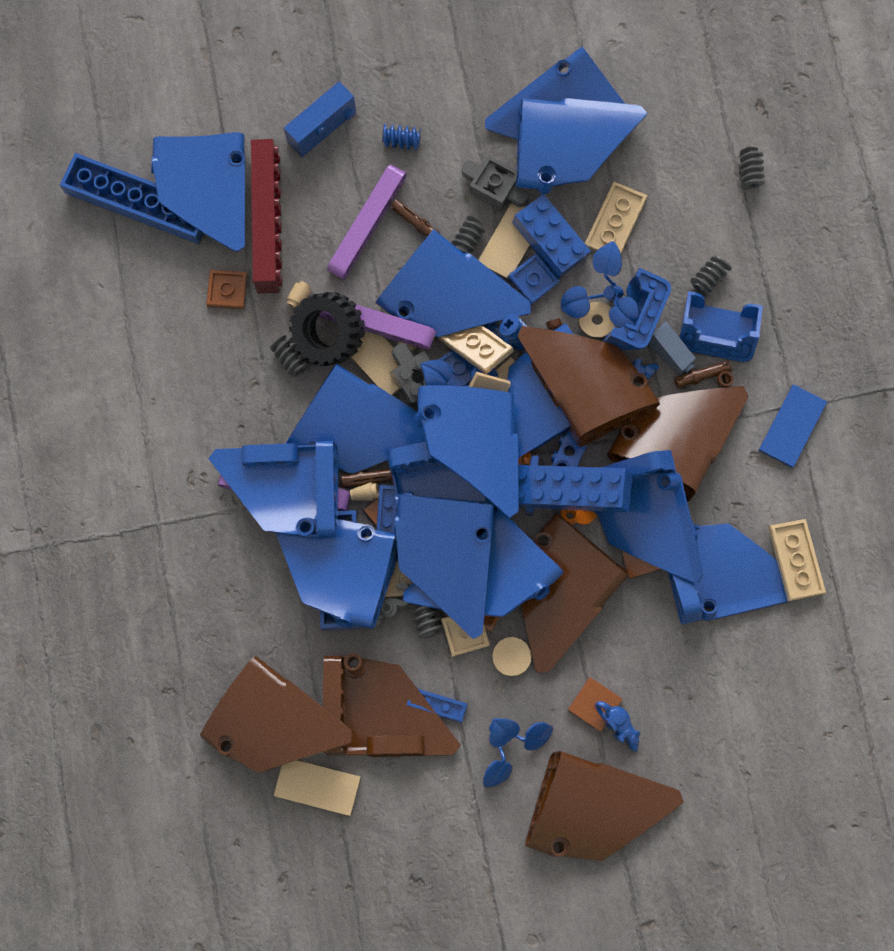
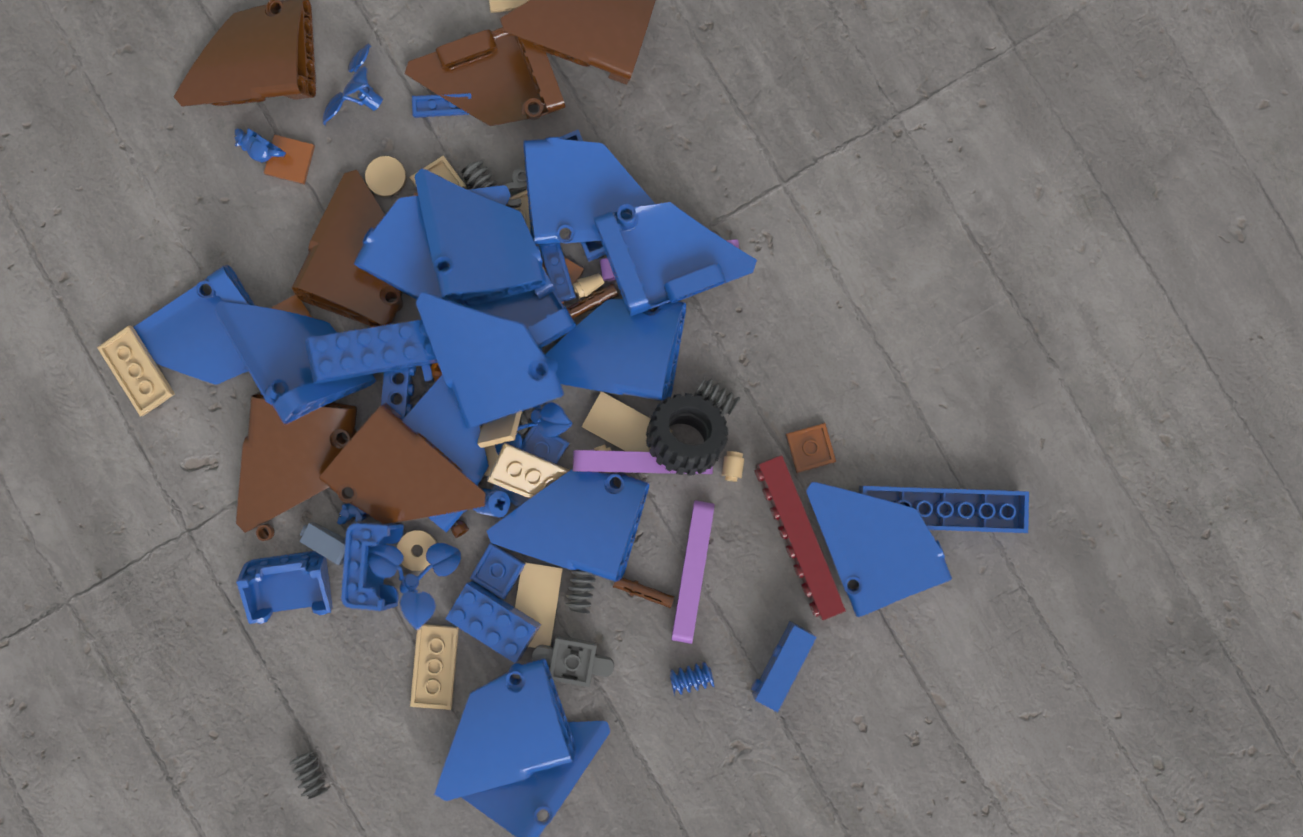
camera: 155 degrees right, 10 degrees up
(409, 373) = (586, 421): dark grey brick -> none
(694, 377) = (290, 530): reddish brown pin -> none
(710, 273) = (316, 639): dark grey piece -> none
(792, 426) = (182, 509): blue tile -> none

